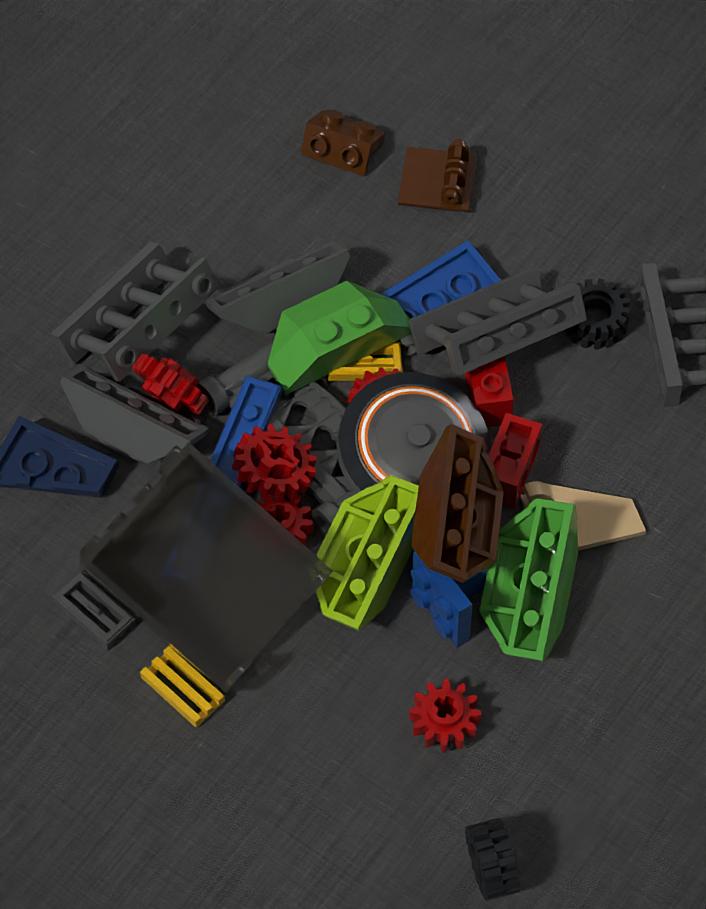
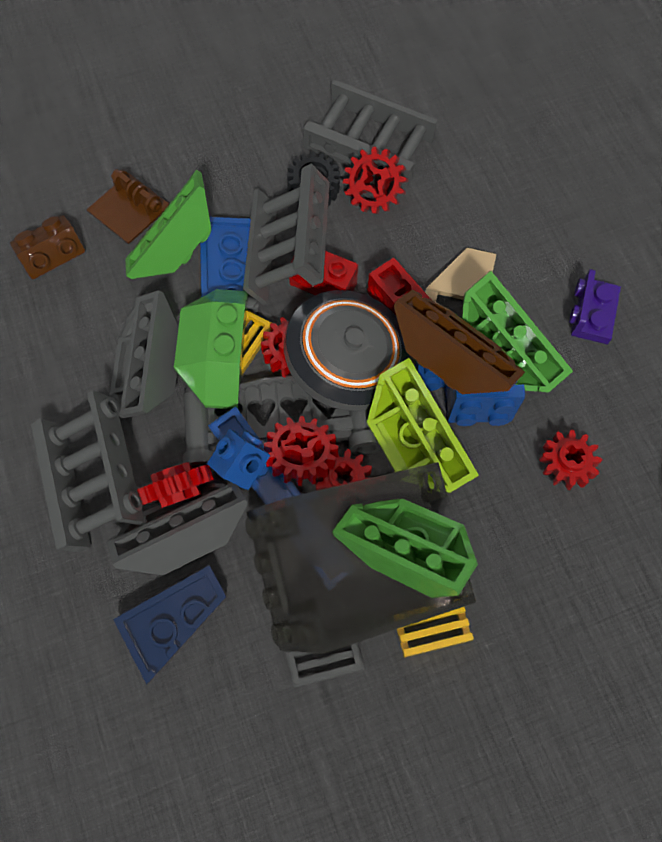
camera: 60 degrees left, 10 degrees up
(224, 412) = (239, 458): none -> blue brick
(239, 589) = (410, 545): none -> bright green wedge
(426, 228) = (174, 233): none -> bright green wedge
(634, 364) = (363, 185): none -> red gear
(649, 656) = (596, 309): none -> dark purple bracket

